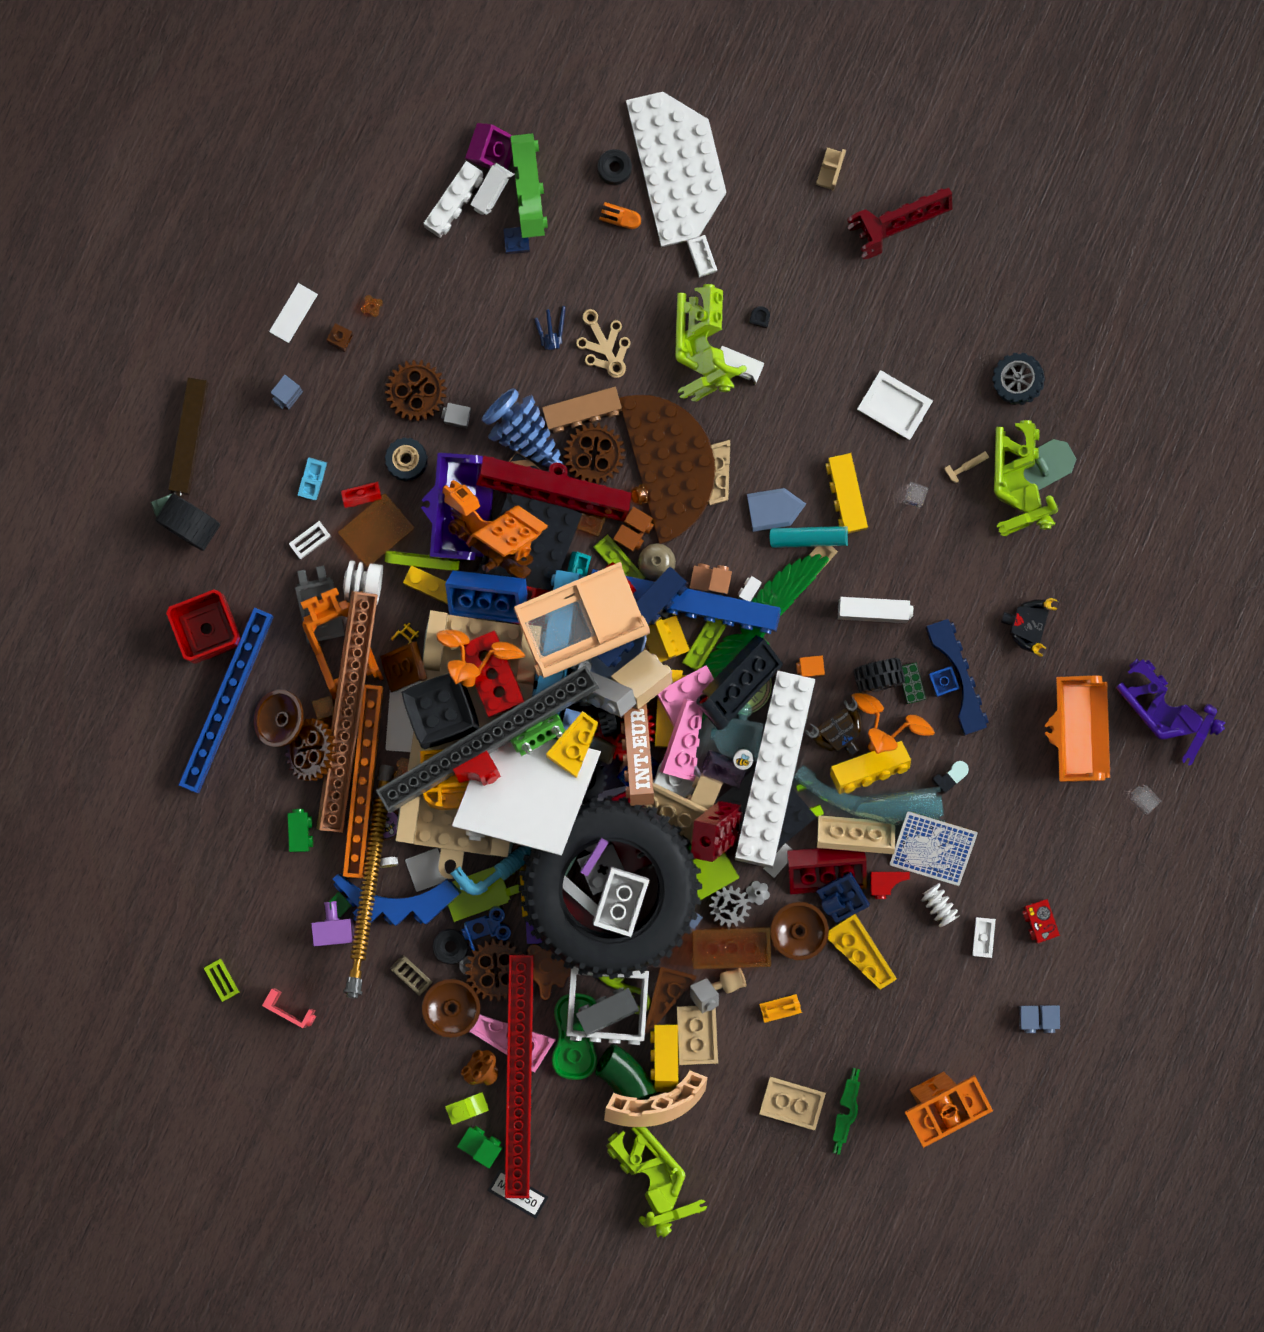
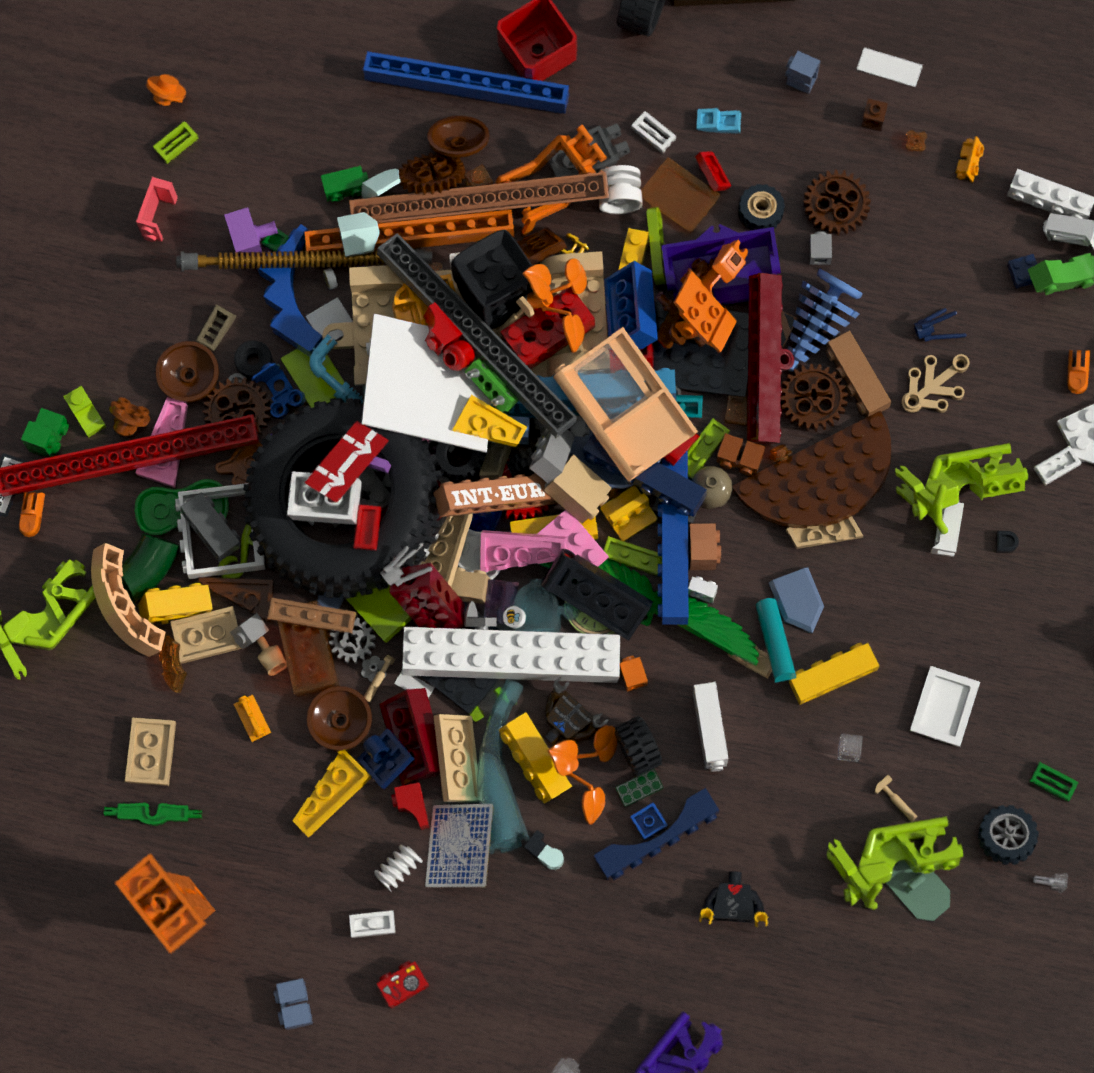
camera: 85 degrees right, 10 degrees down
(170, 979) = (165, 89): none -> orange piece
(312, 797) = (380, 183): none -> light aqua slope
(356, 827) = (358, 233): none -> light aqua slope
(394, 258) = (972, 151): none -> light orange hinge
(473, 689) = (525, 307): none -> tan piece
(506, 758) = (458, 355): none -> red head
(552, 1173) = (31, 513): none -> orange arm
(595, 875) = (346, 461): none -> red sticker
(653, 869) = (367, 527): none -> red tile
(696, 854) = (392, 572): none -> light grey plant
(706, 937) = (311, 615): none -> medium nougat tile
(719, 1071) = (173, 672): none -> clear orange tile
(741, 791) = (471, 619): none -> light grey plate
(768, 890) = (378, 678): none -> tan piece
(969, 341) = (1033, 780): none -> green tile
(1065, 348) = (1057, 881): none -> clear piece
(1081, 729) = (627, 983): orange piece -> none

